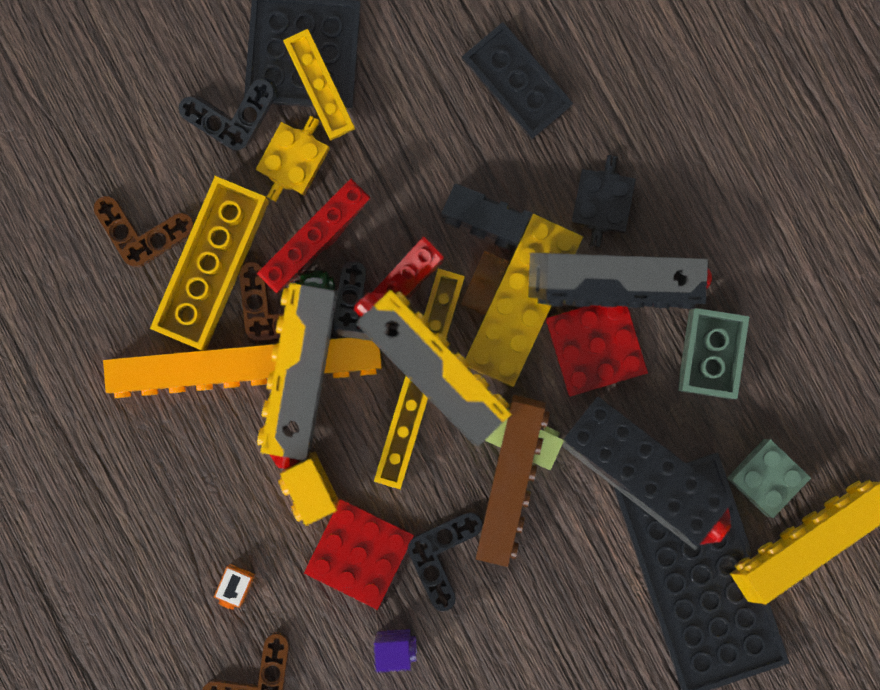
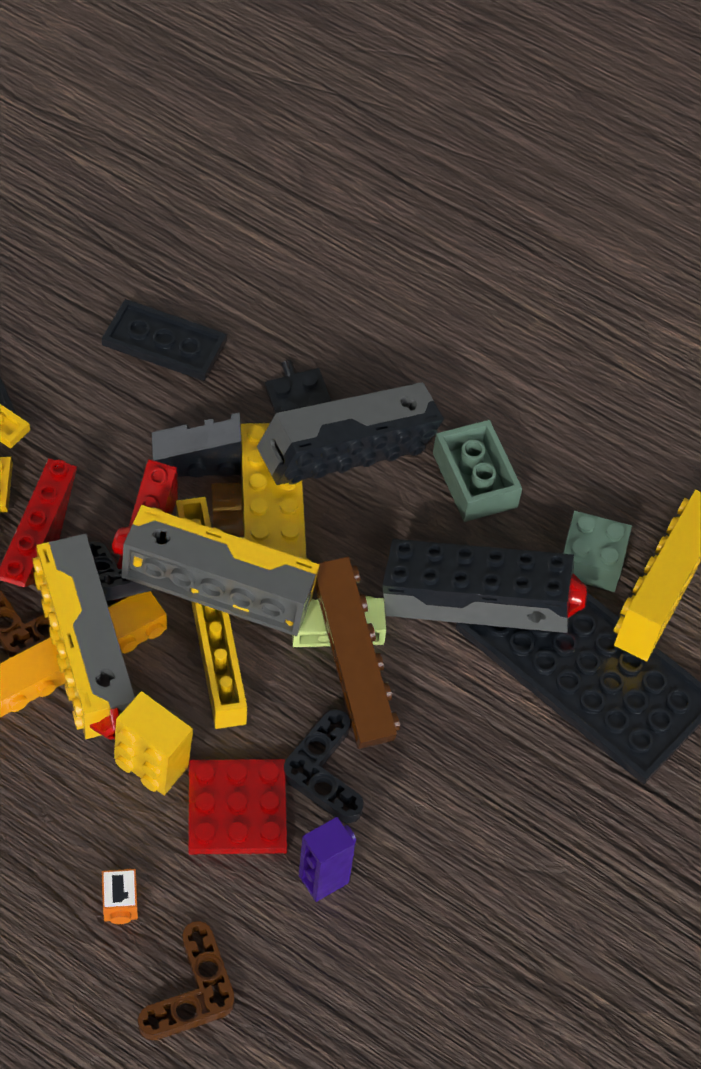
camera: 35 degrees left, 30 degrees down
(595, 347) = (364, 518): red plate -> none

